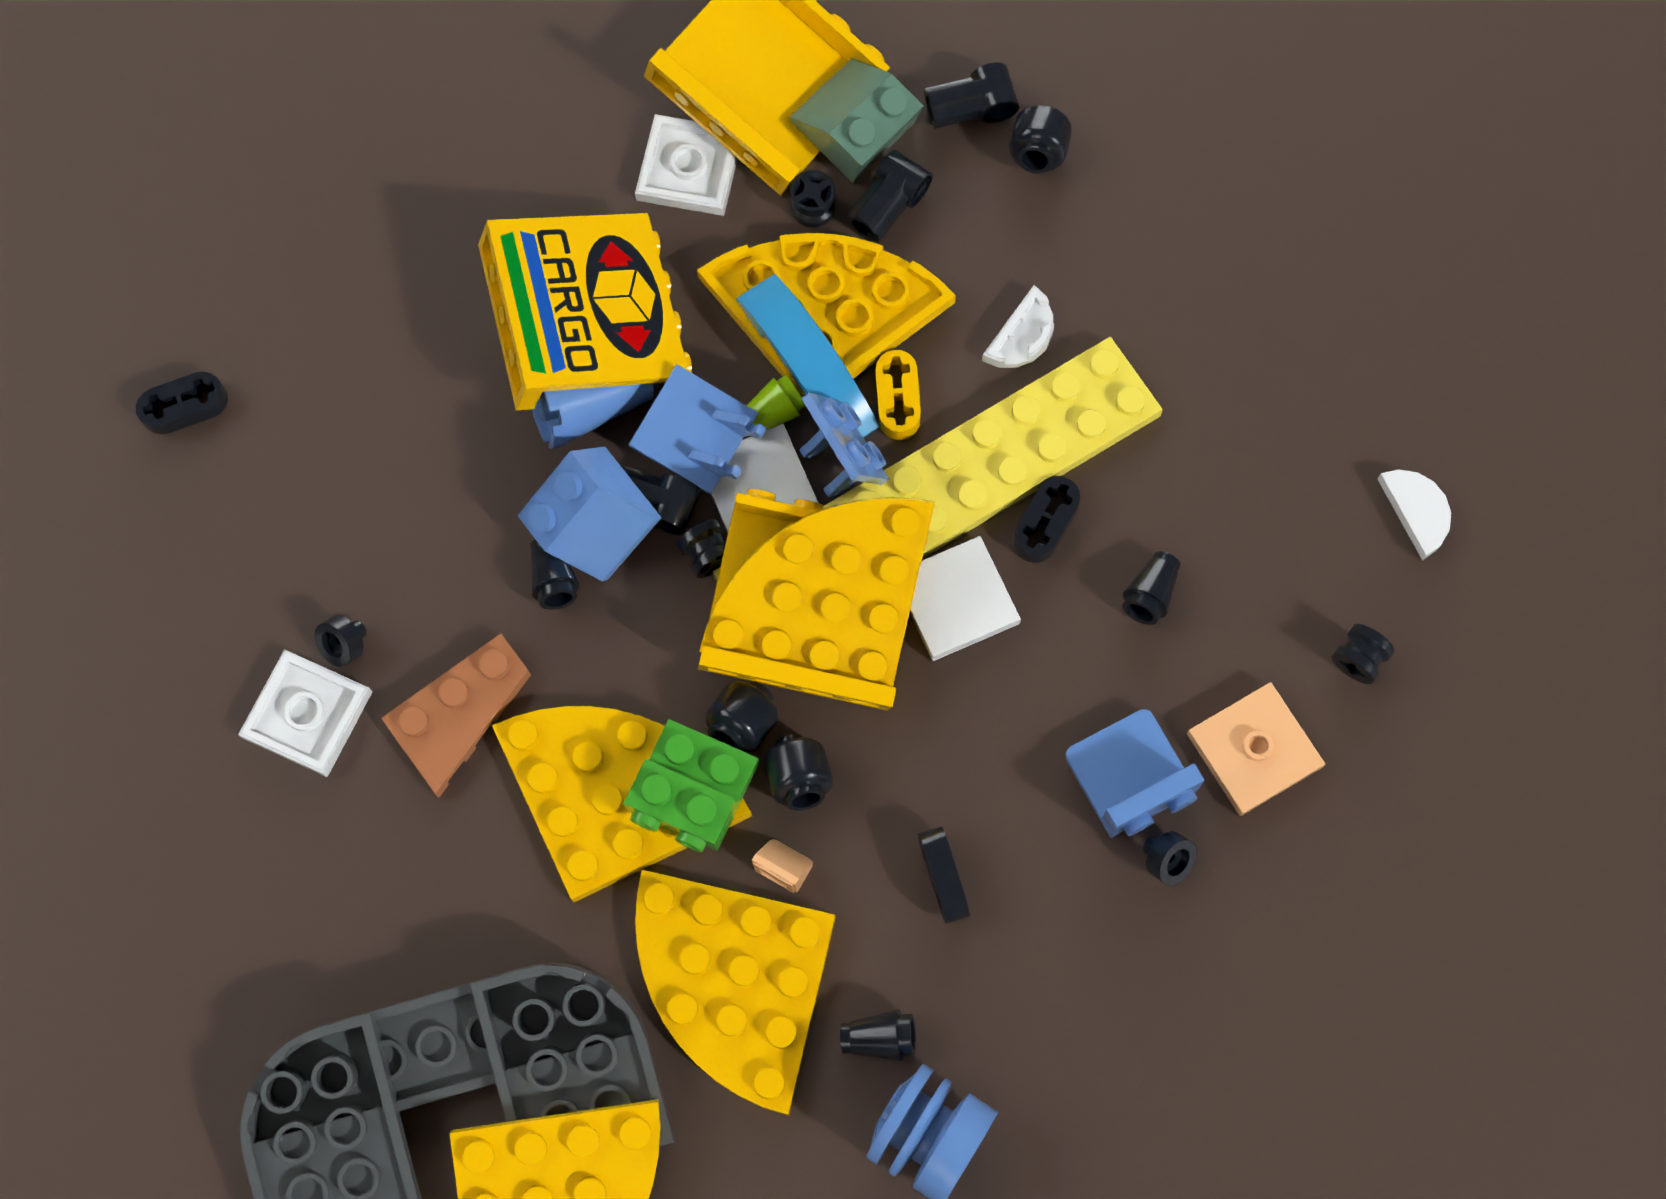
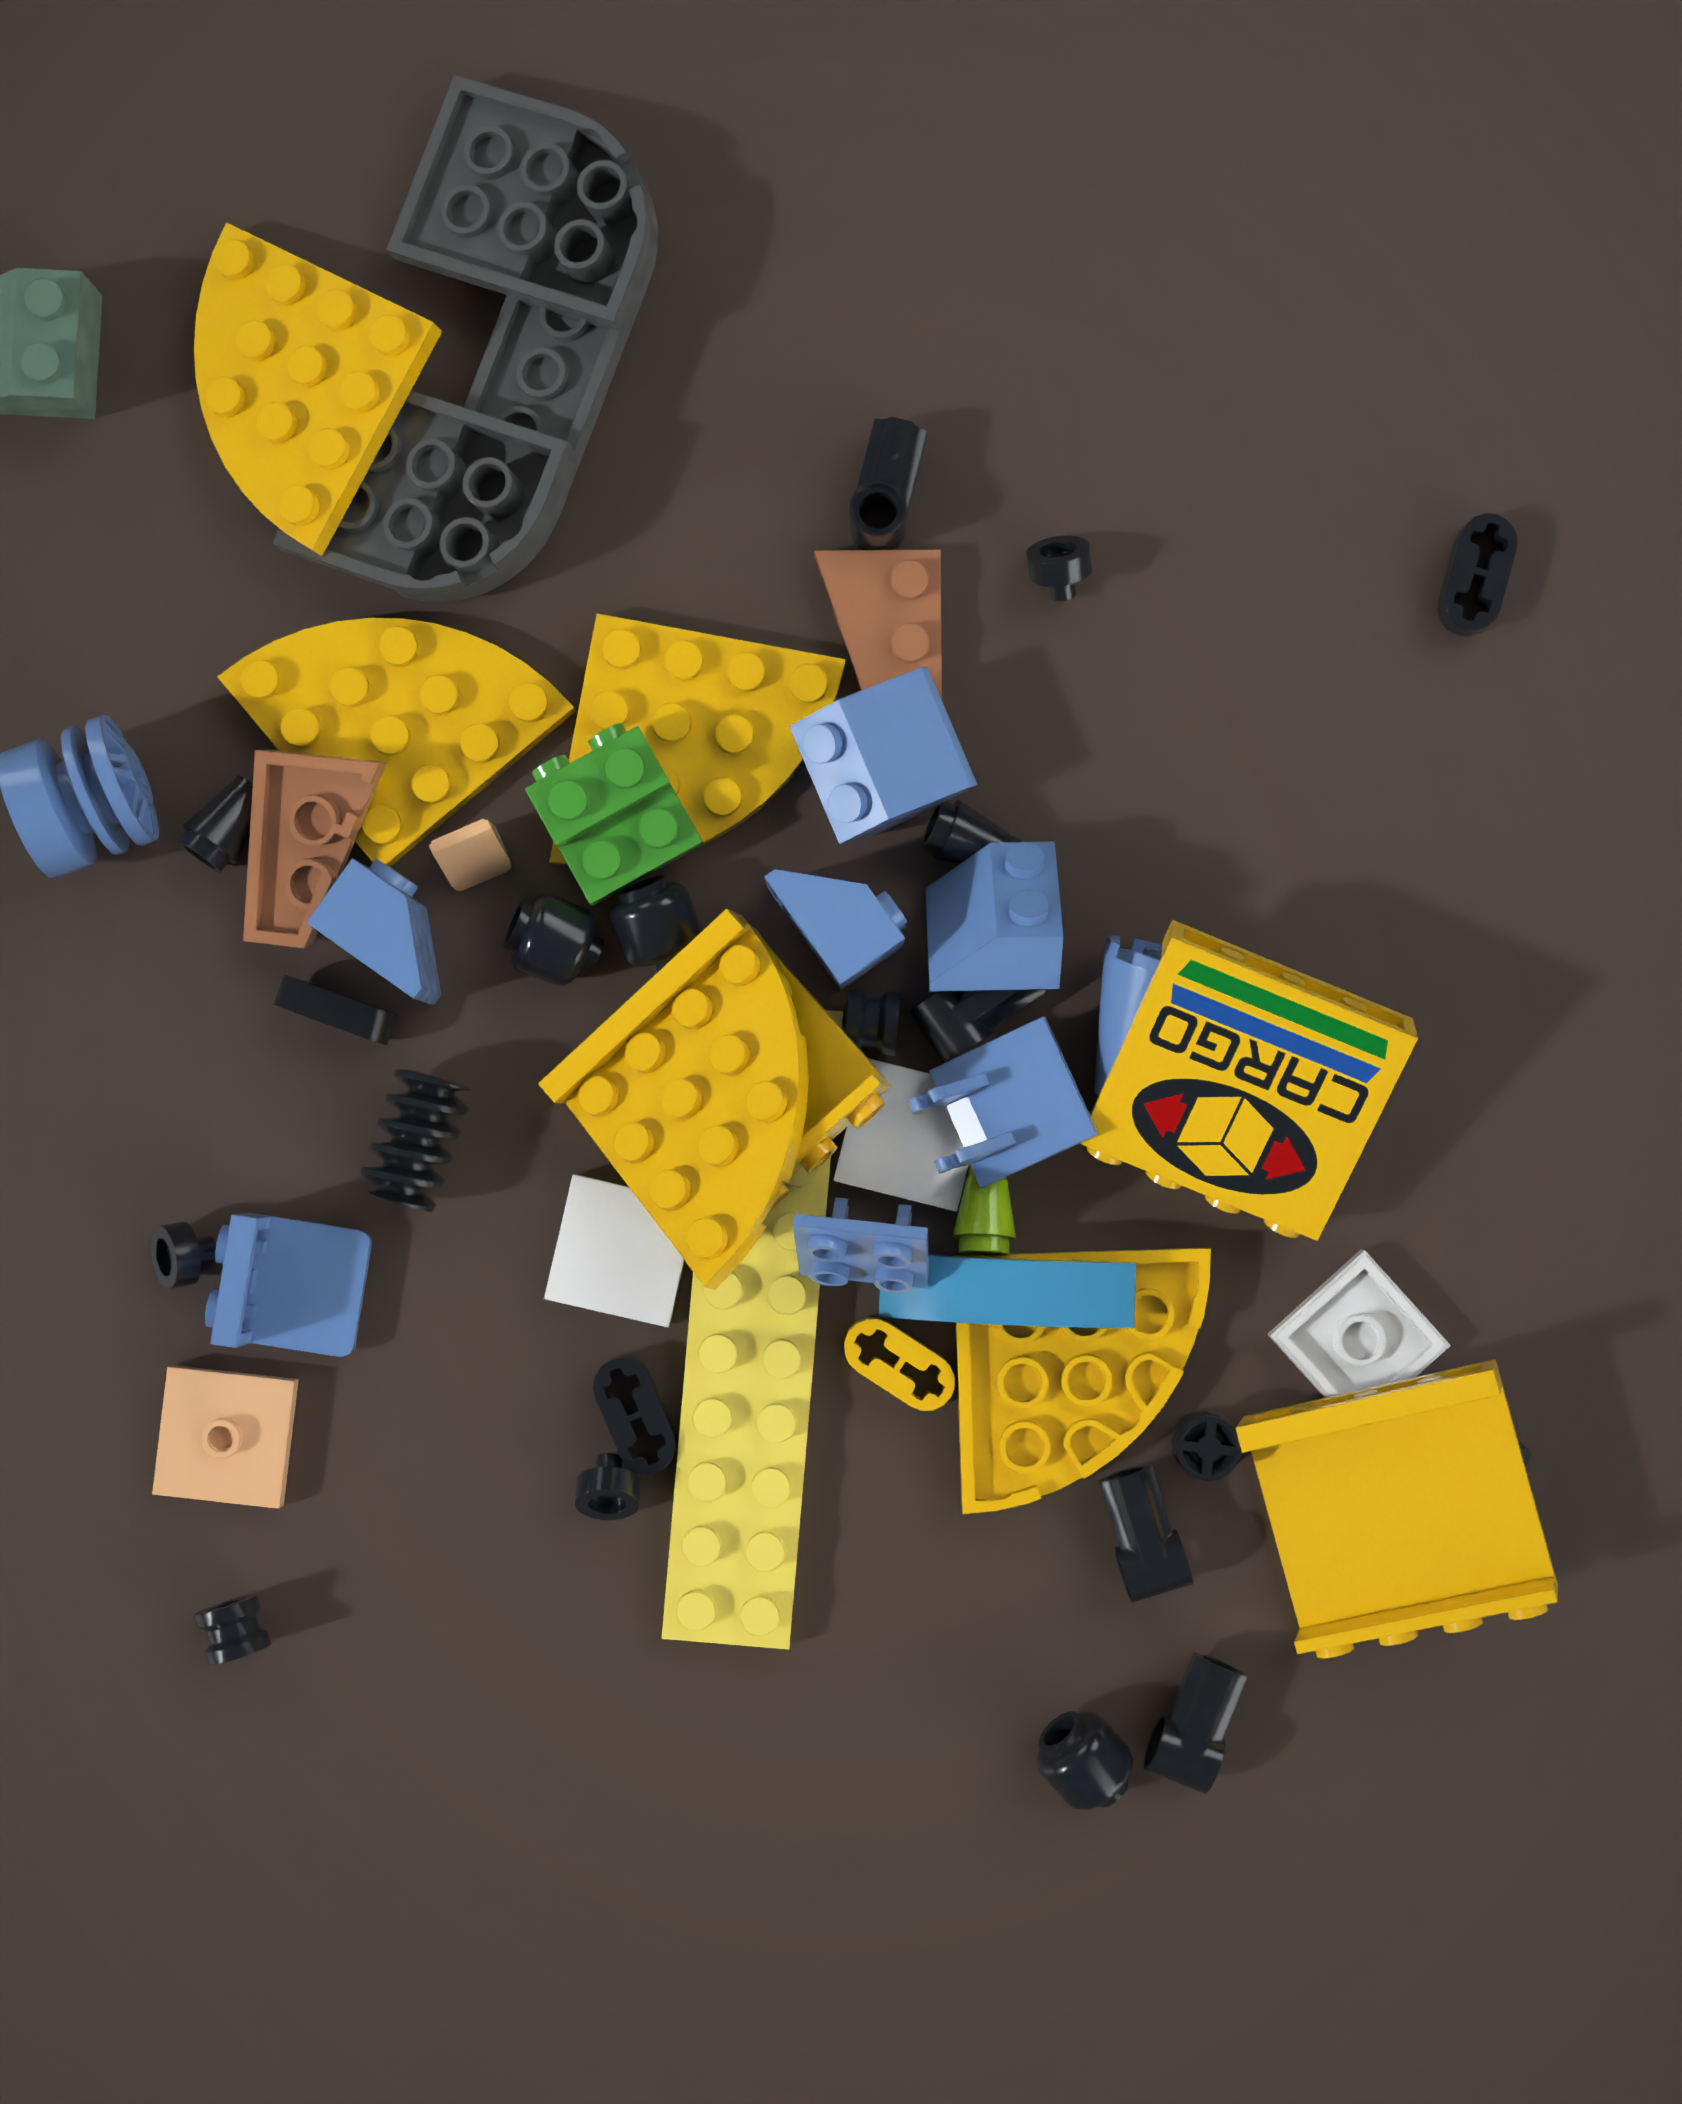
camera: 125 degrees right, 15 degrees up
(305, 713) = (1009, 477): white tile -> none
(359, 780) = (887, 481): none -> black piece
(535, 649) = (883, 755): none -> medium blue slope
(662, 598) = (840, 921): none -> medium blue slope
(851, 974) = (300, 838): none -> nougat wing
(857, 116) = (1269, 1571): sand green slope -> none
(867, 873) = (382, 926): none -> medium blue slope
(985, 762) = (415, 1139): none -> black piece
(1024, 334) = (867, 1559): white tile -> none
(1102, 500) = (607, 1490): none -> black tile
(1152, 589) = (471, 1465): black cone -> none
(1420, 508) = (342, 1826): white tile -> none

